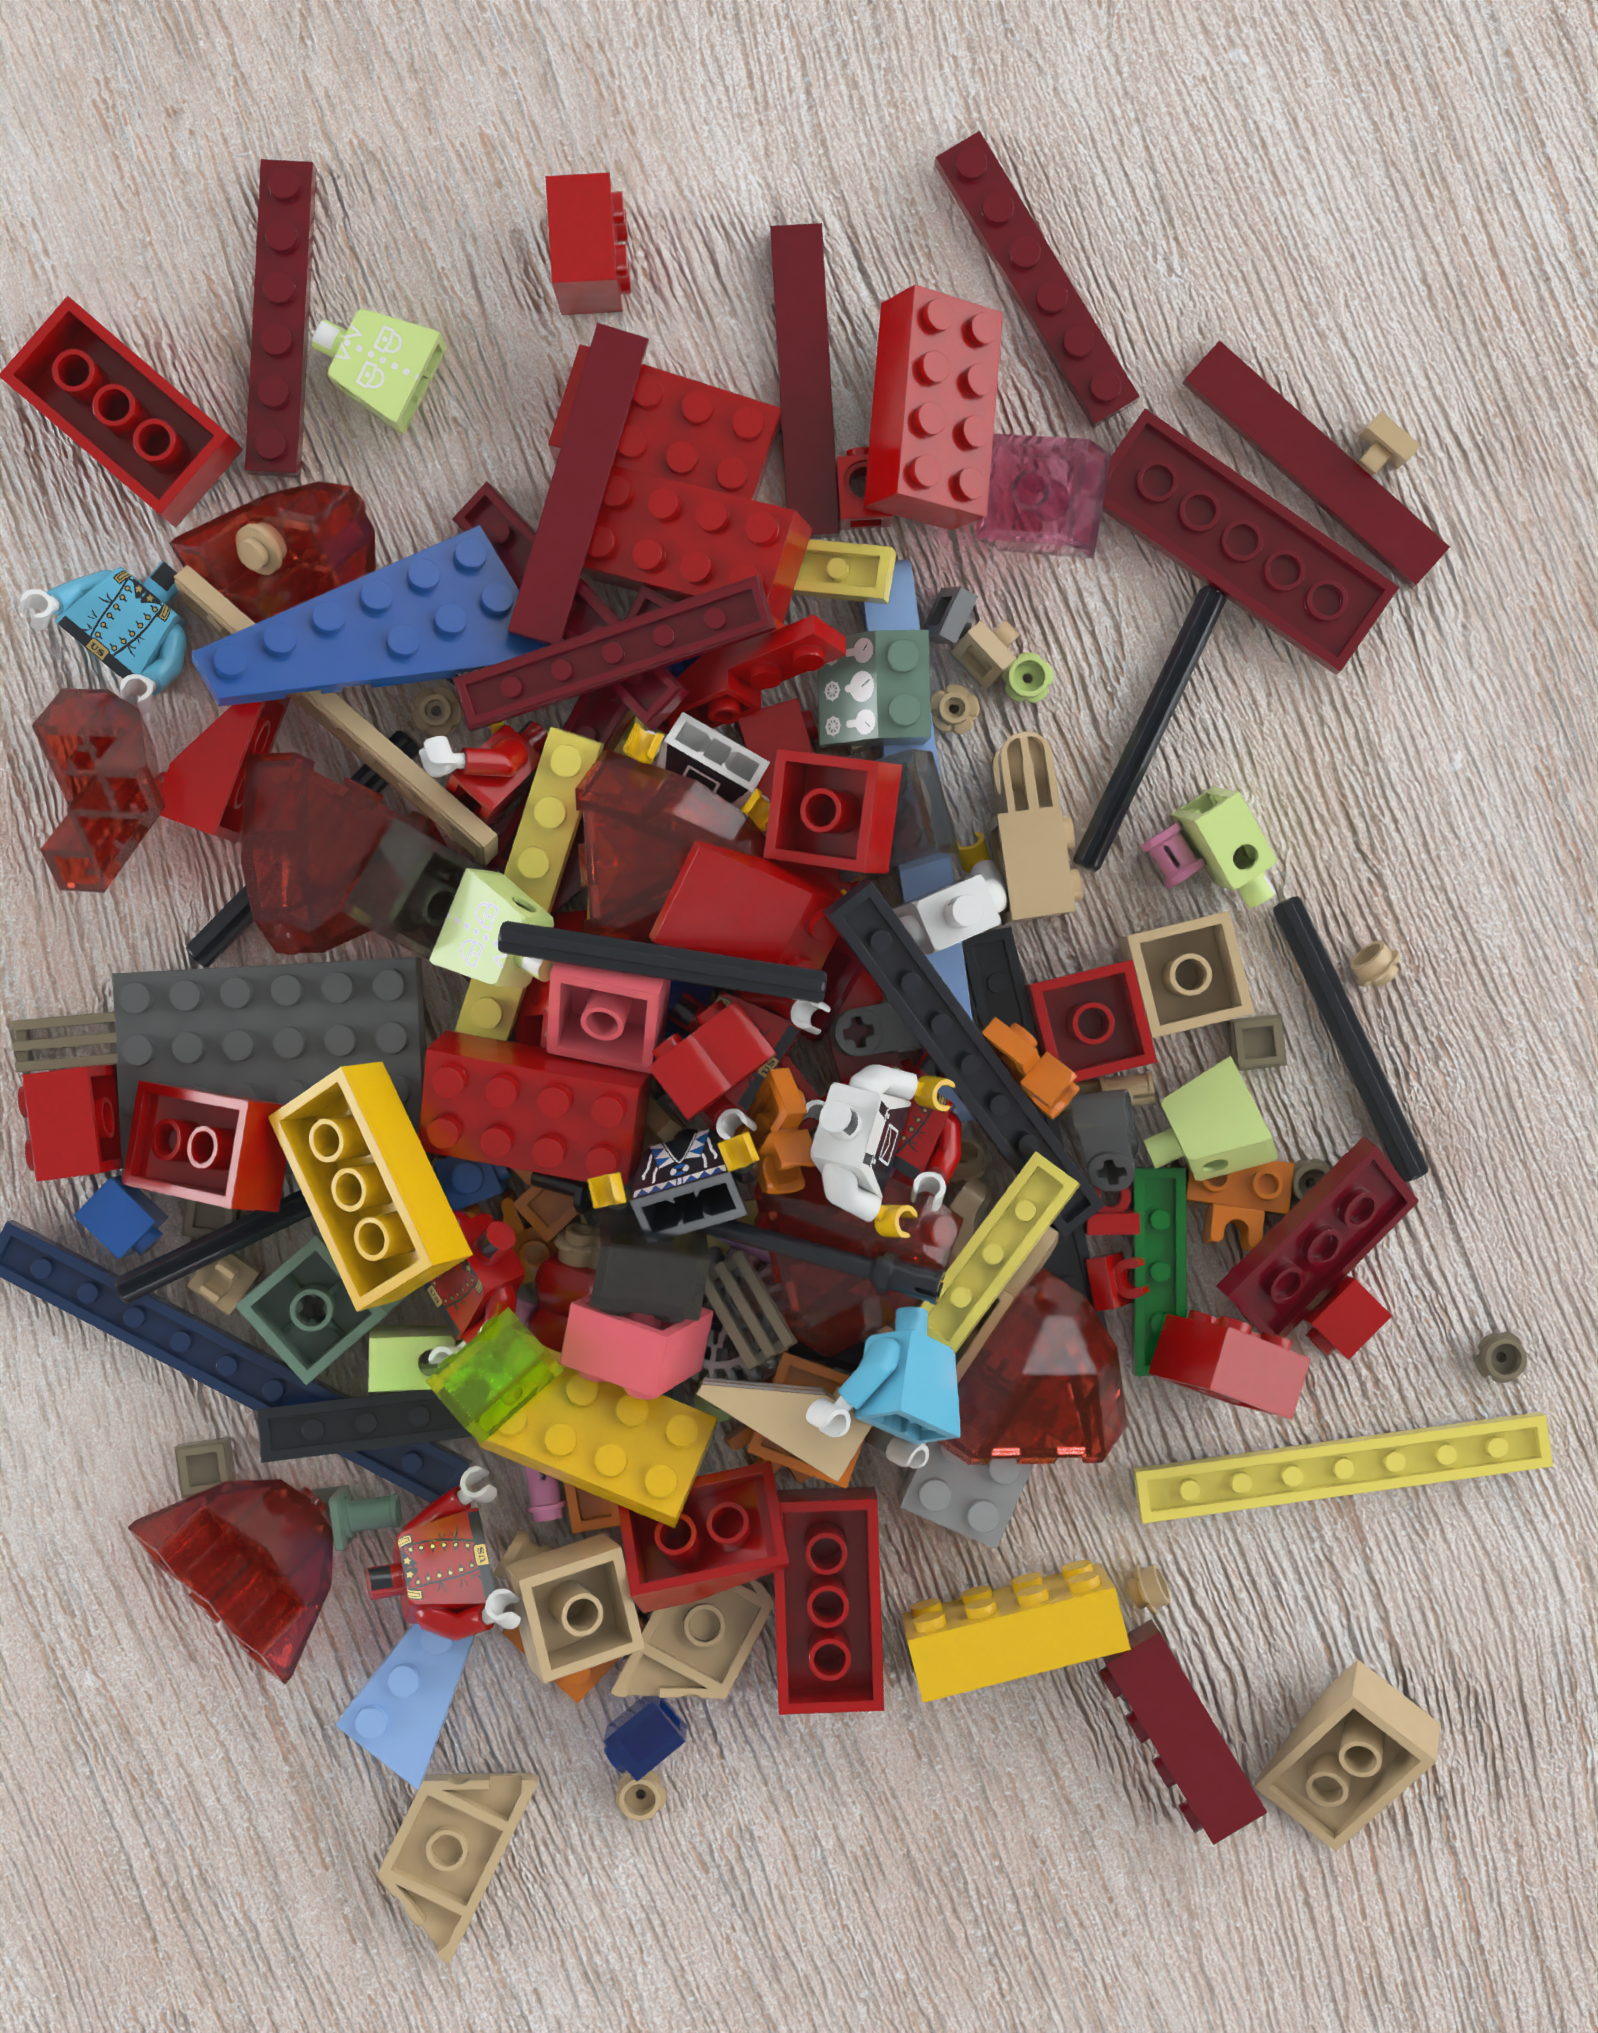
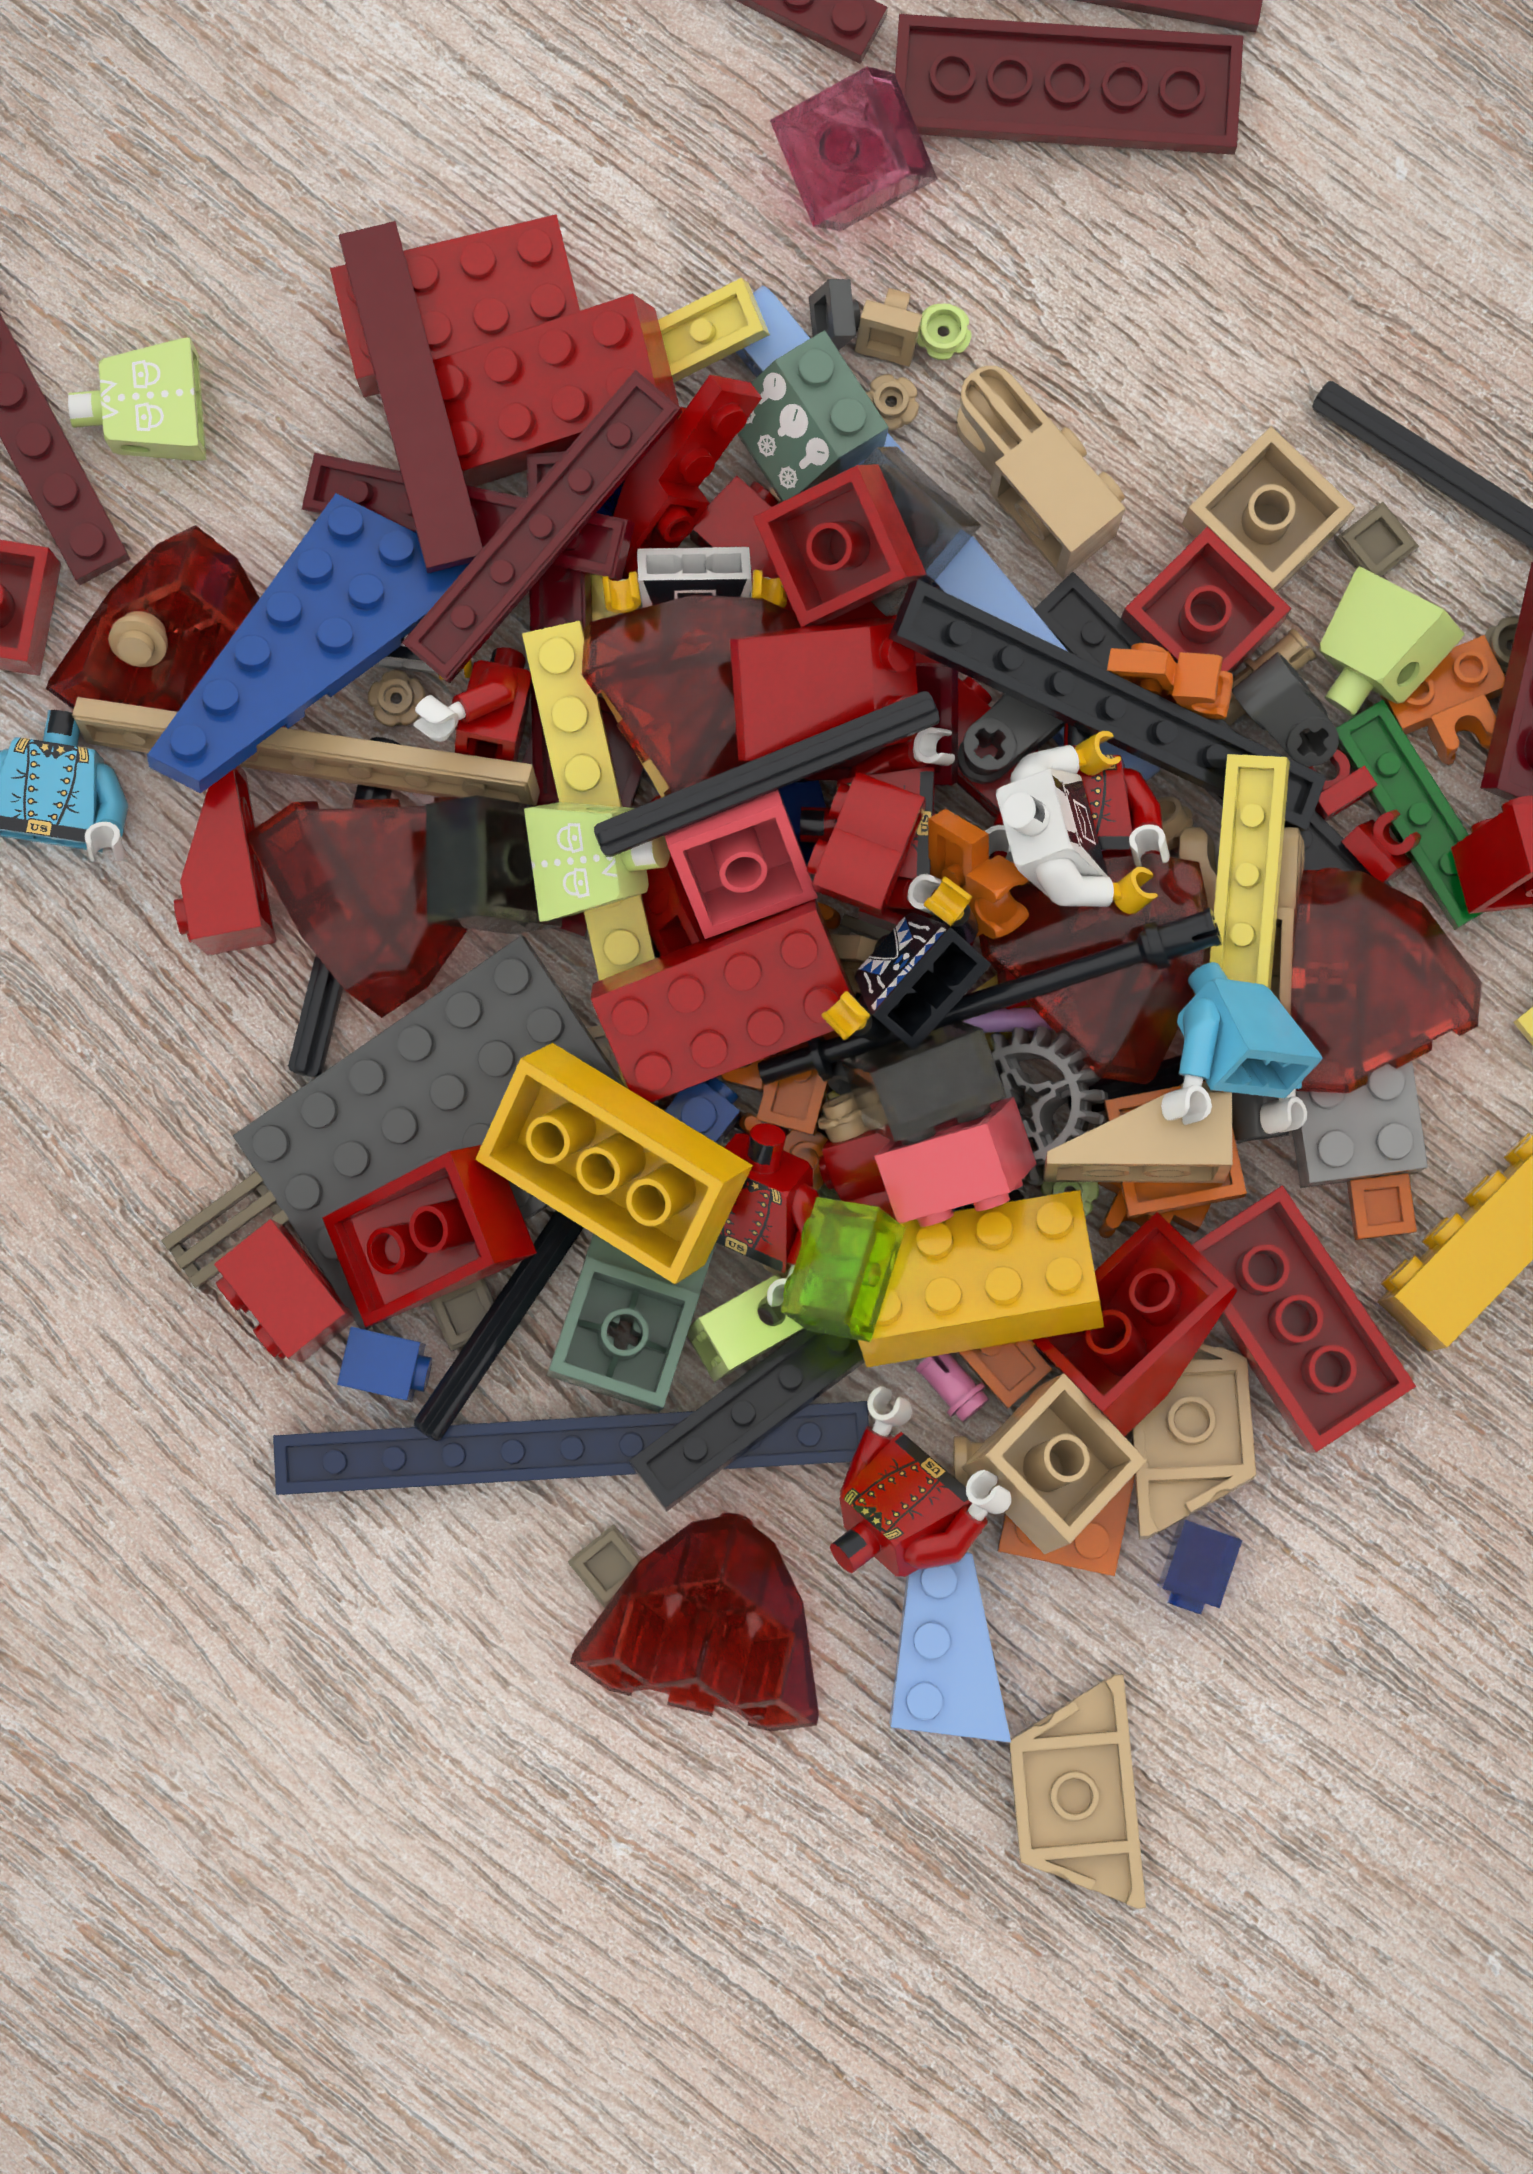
camera: 30 degrees left, 5 degrees down
(108, 780) = (128, 946): clear red brick -> none
(225, 1281) = (519, 1370): tan tile -> none
(358, 1515) = (790, 1513): sand green bracket -> none
(584, 239) = (278, 173): red brick -> none
(640, 1808) = (1247, 1626): tan plate -> none
(729, 1321) = (1091, 1099): dark tan tile -> none
(805, 376) = (555, 173): dark red tile -> none
(851, 507) = (684, 271): red brick -> none
(933, 408) = (701, 130): brick -> none
(945, 1553) = (1381, 1206): none -> orange plate
(959, 907) = (1015, 568): white torso -> none
(1150, 728) = (1089, 308): black axle -> none
(1172, 871) = (1194, 429): bright pink bush -> none
(1217, 827) = (1230, 368): yellowish green torso -> none
(1375, 964) = (1443, 401): tan plate -> none

